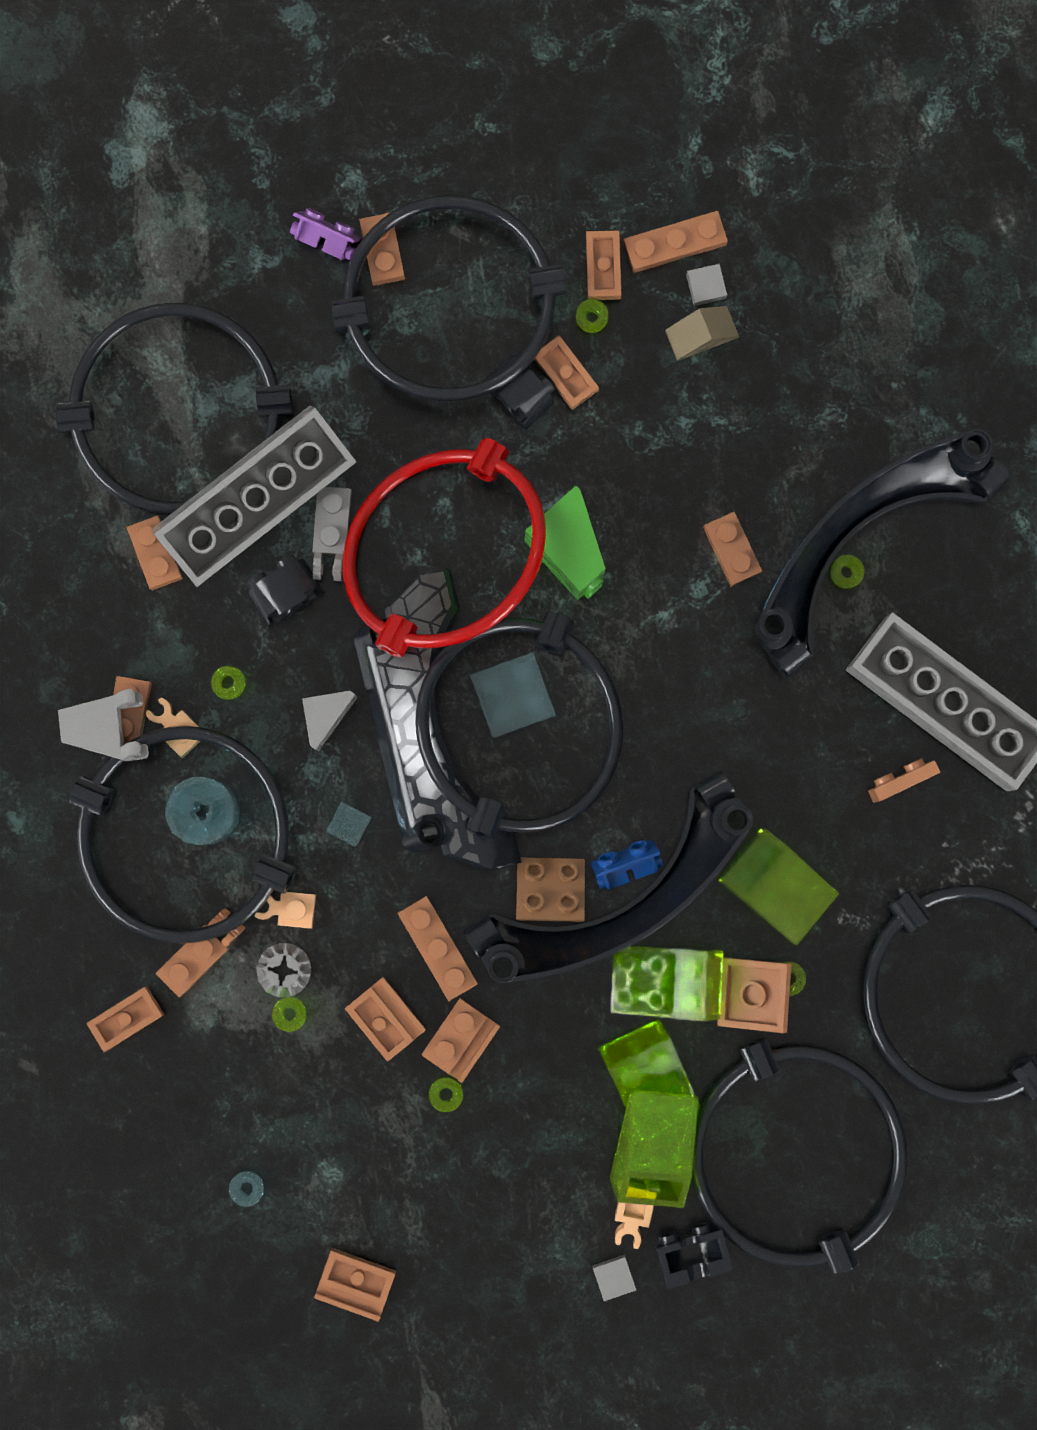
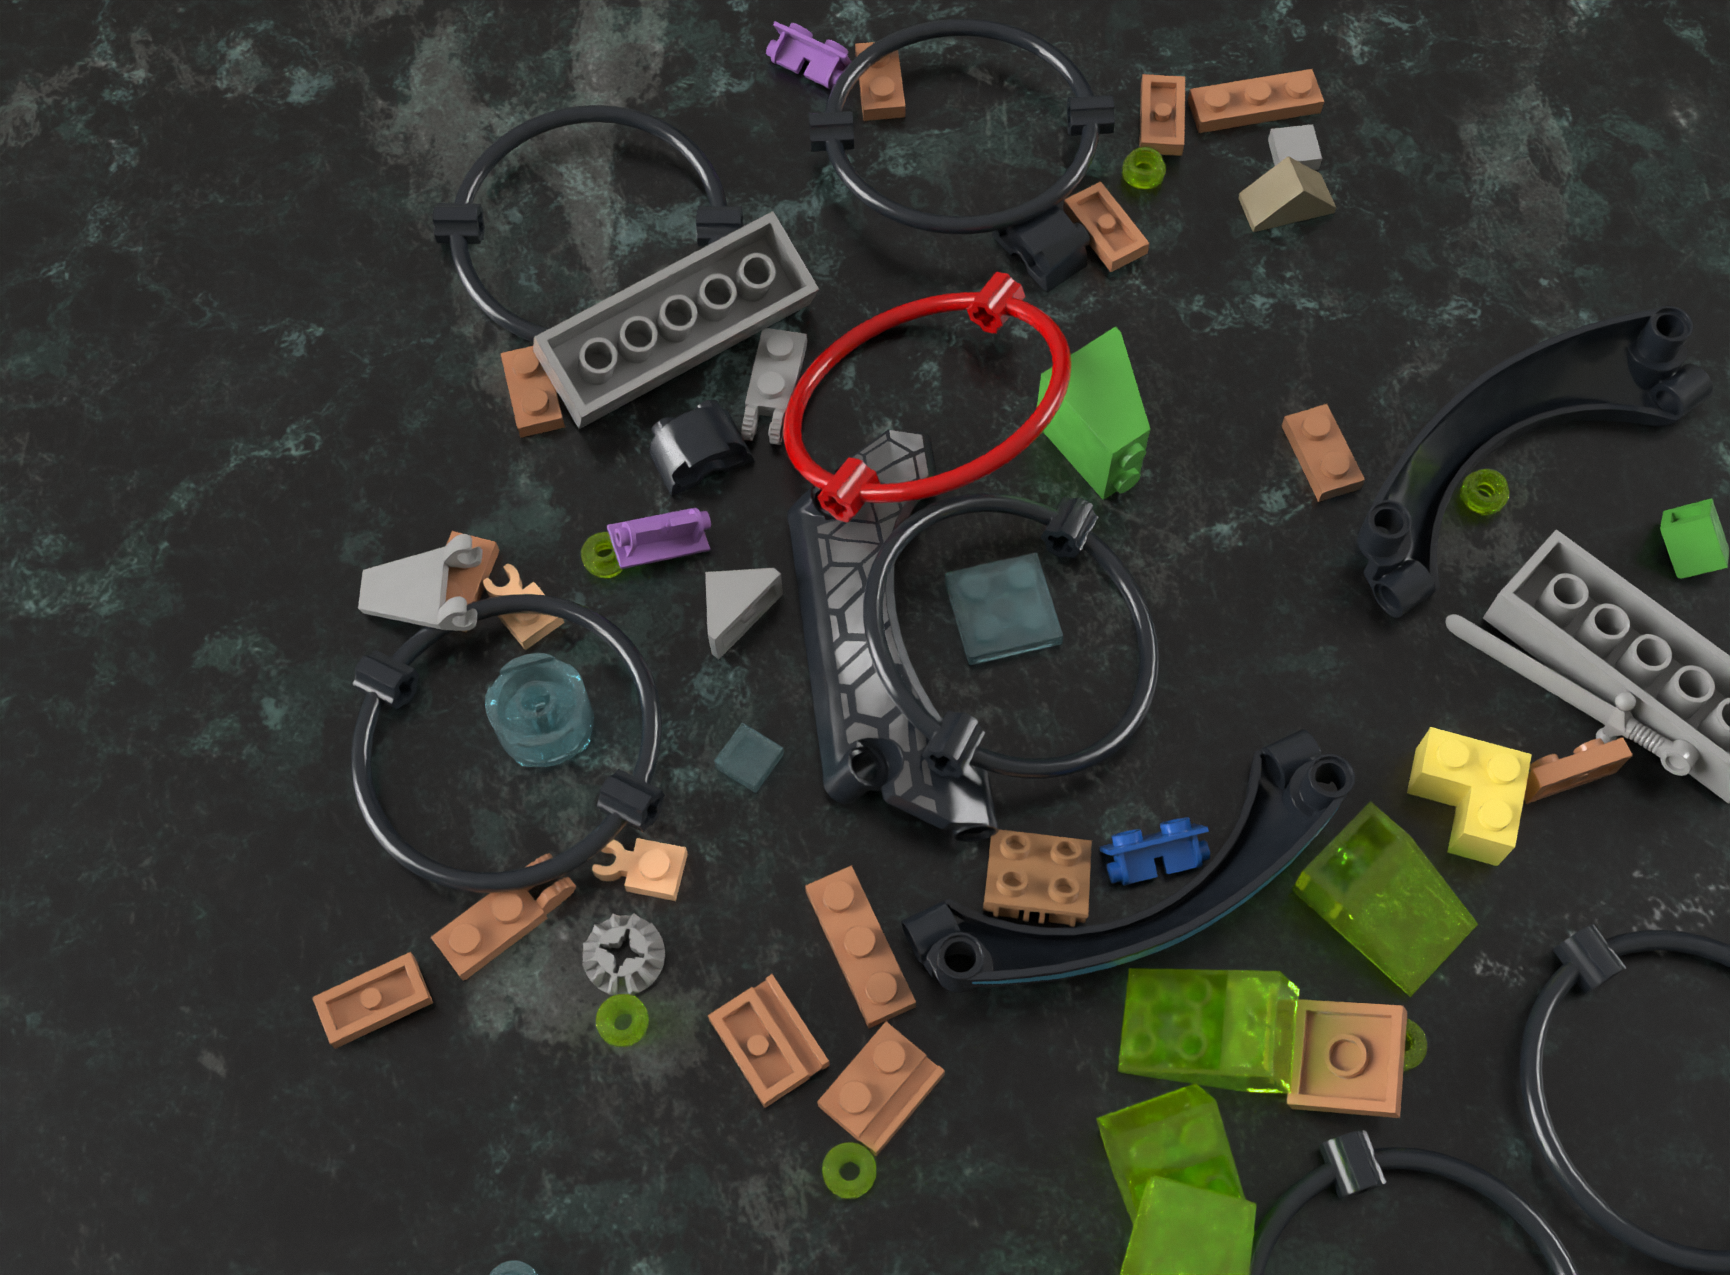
camera: 10 degrees right, 20 degrees down
(265, 667) = (660, 537): none -> medium lavender hinge
(845, 802) = (1483, 785): none -> light yellow brick
(968, 768) = (1676, 755): none -> light grey sword
(992, 596) = (1695, 539): none -> bright green panel

